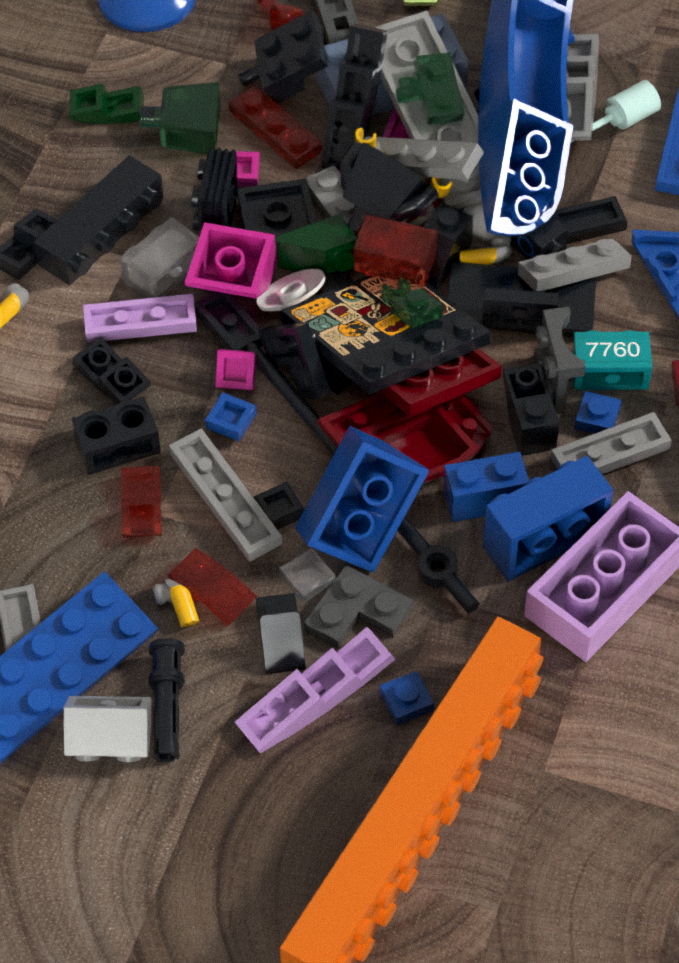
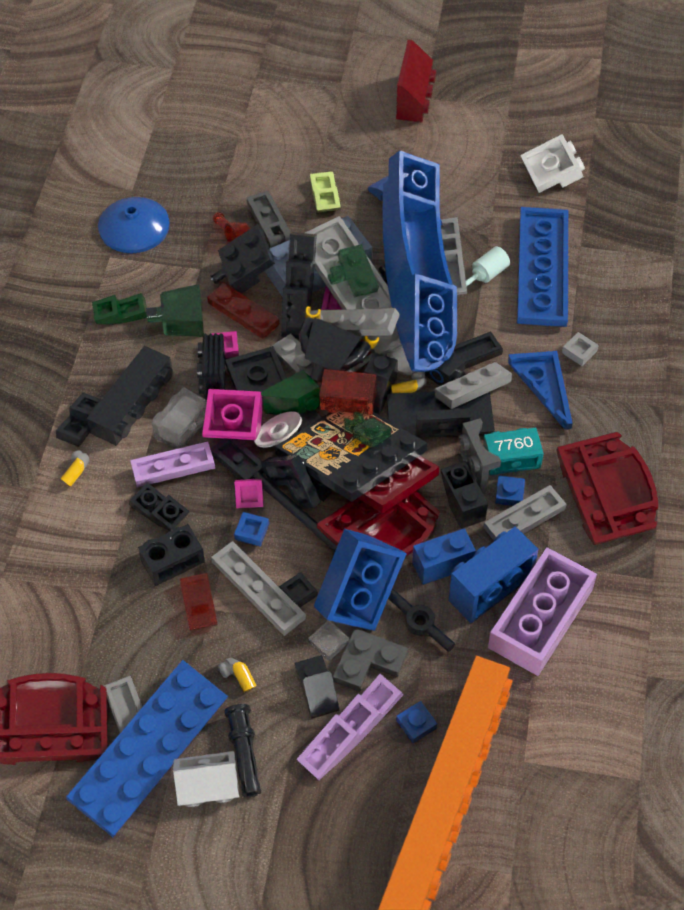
camera: 10 degrees left, 0 degrees up
(213, 586) = (262, 658): clear red slope -> none

